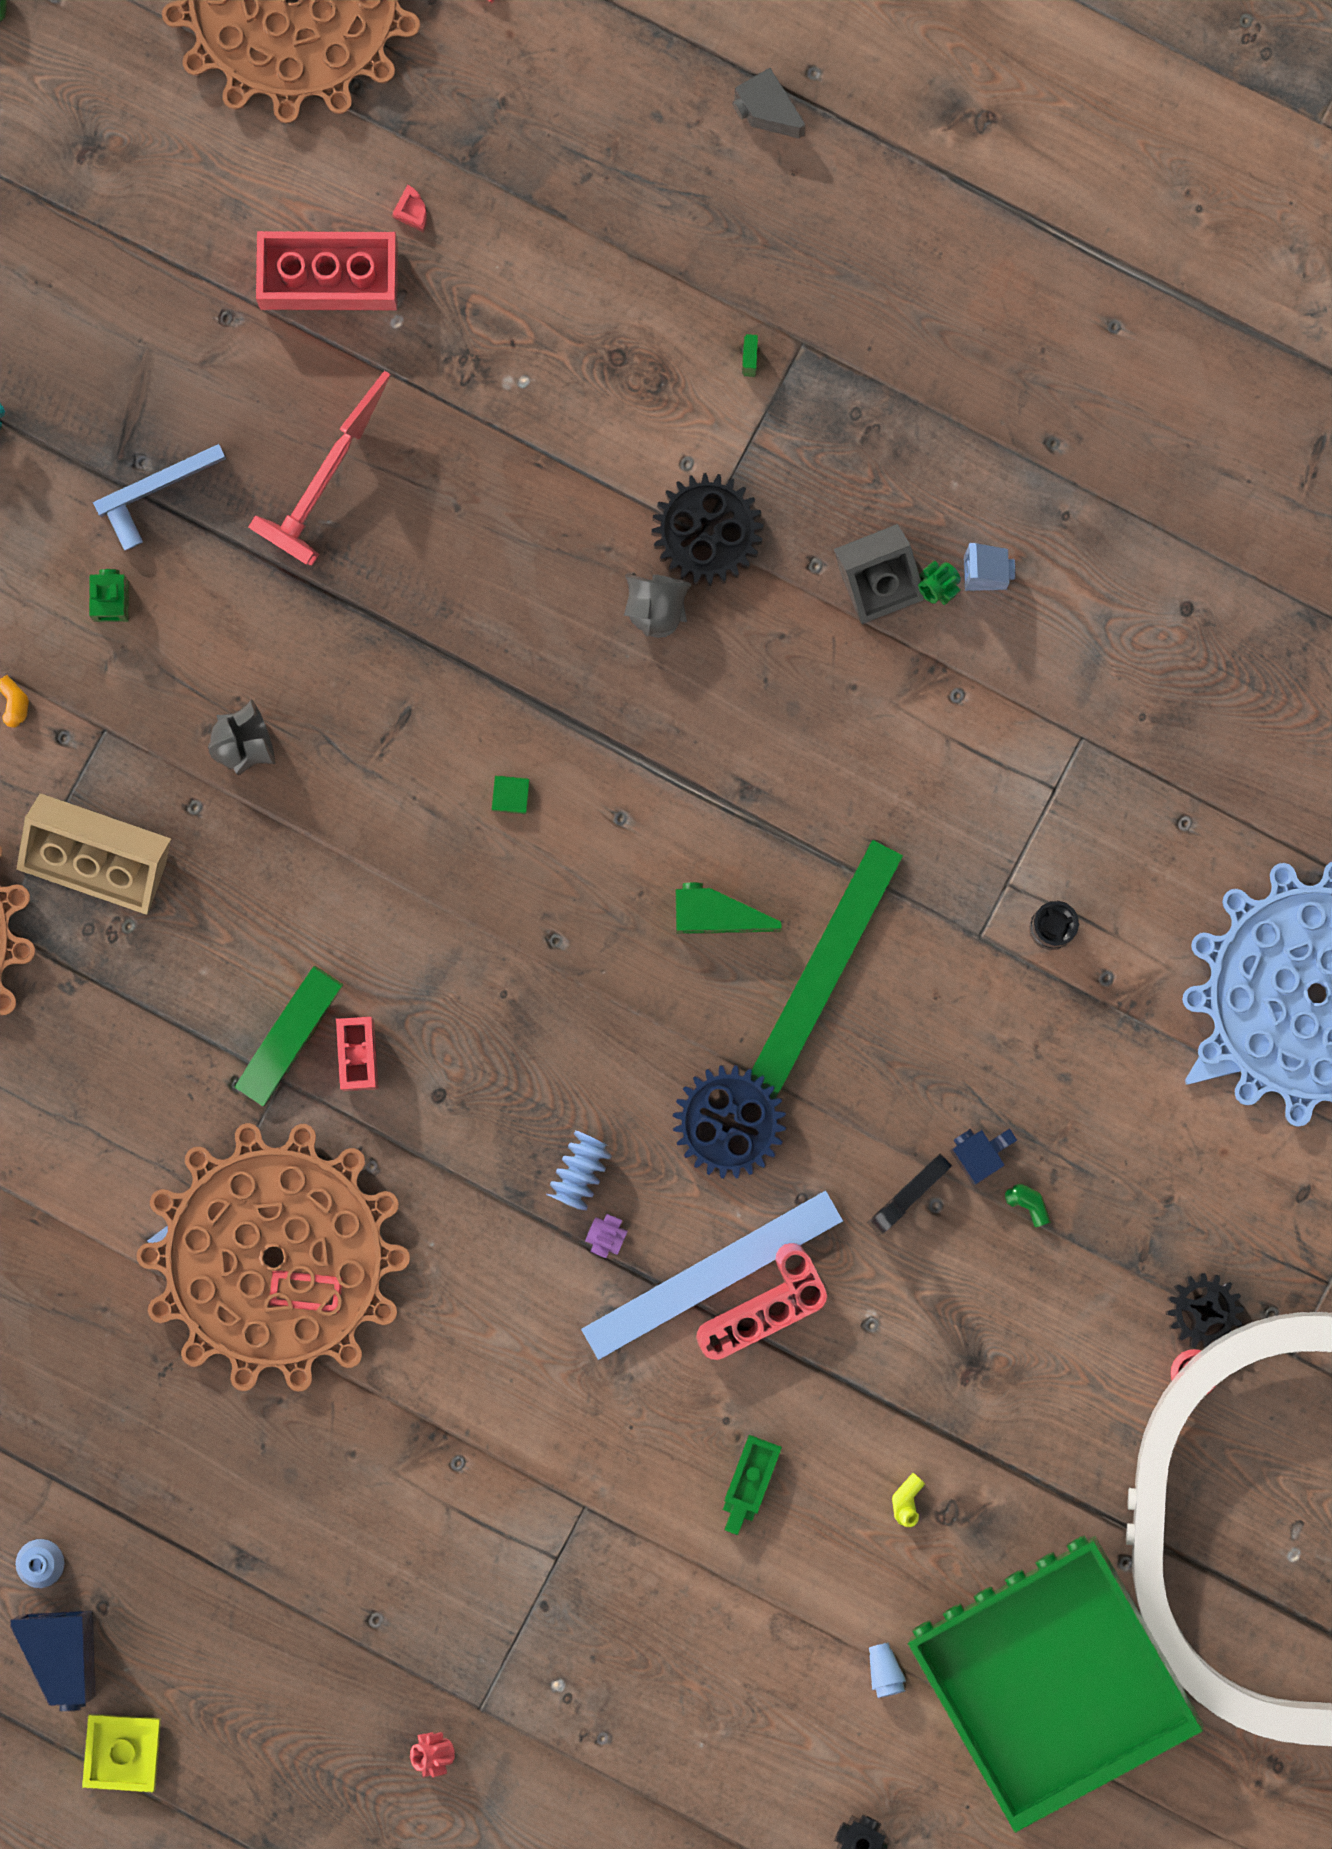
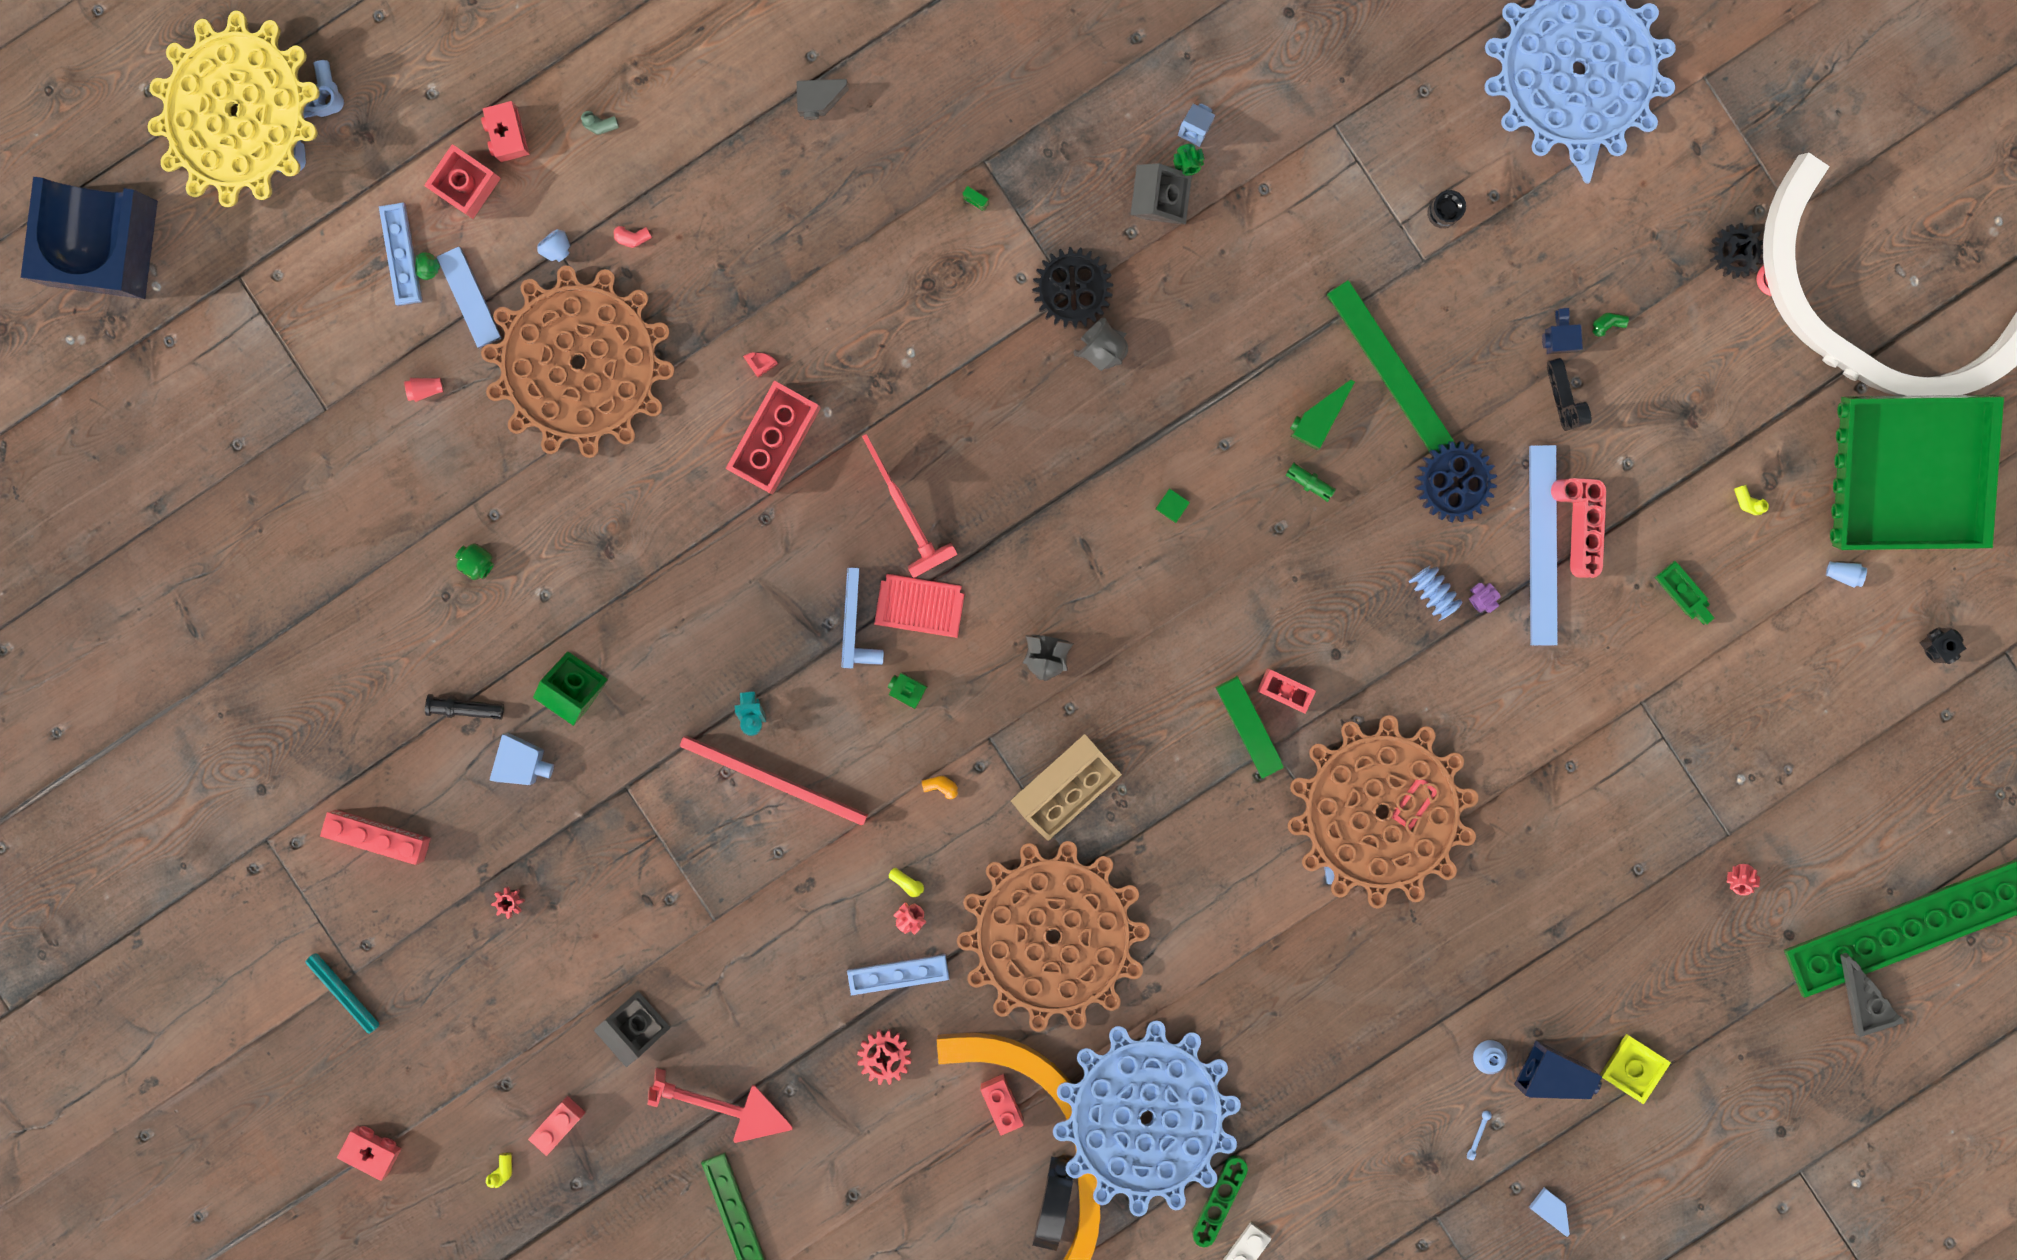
camera: 60 degrees left, 5 degrees up
(221, 558) = (919, 605): none -> coral window
(631, 945) = (1310, 482): none -> green pin

